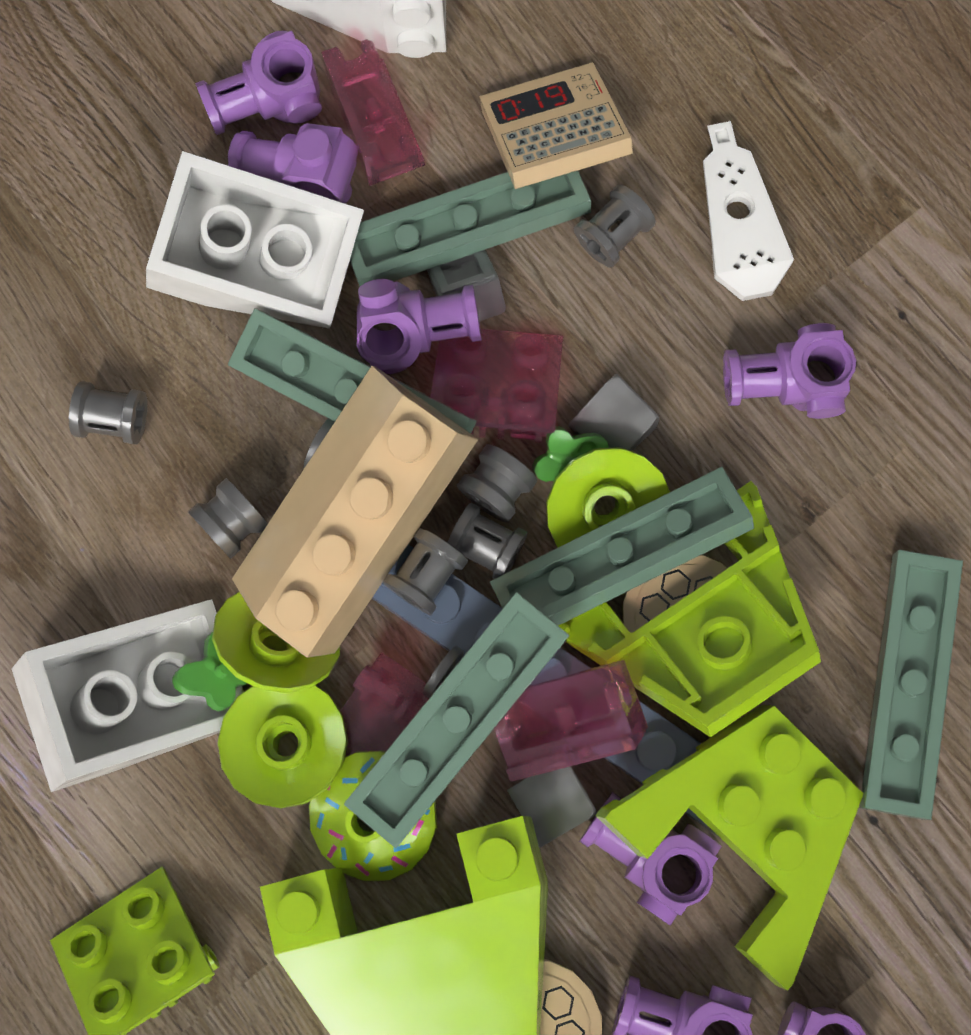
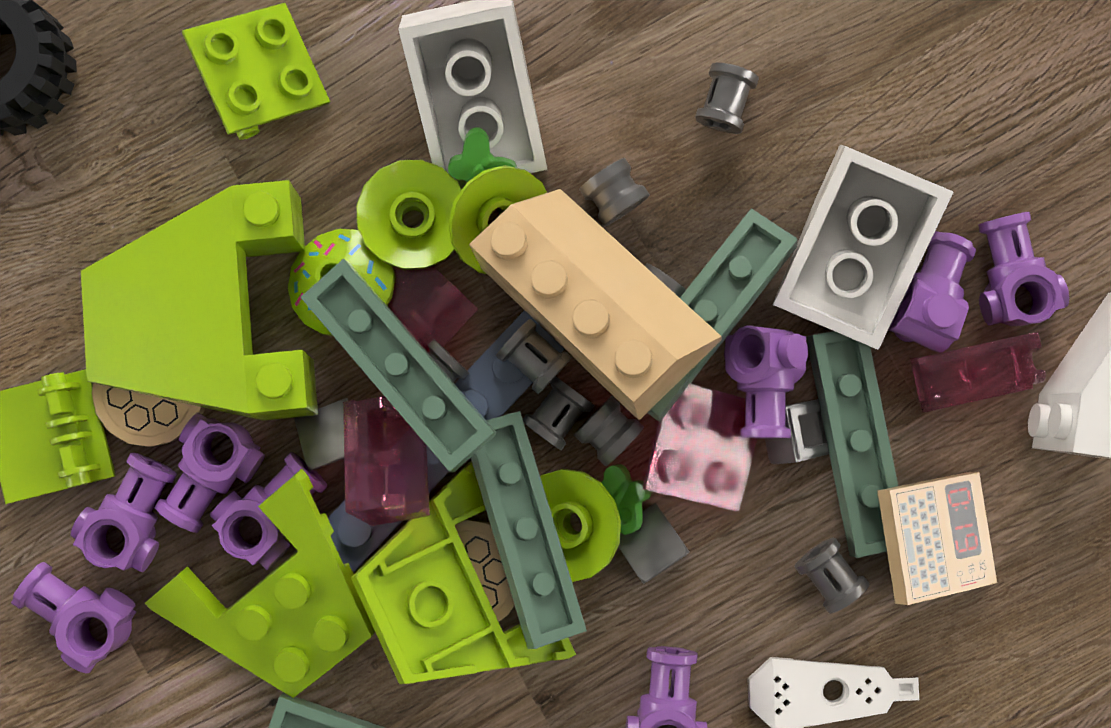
camera: 95 degrees right, 10 degrees up
(621, 937) = (203, 473): none -> medium lavender connector

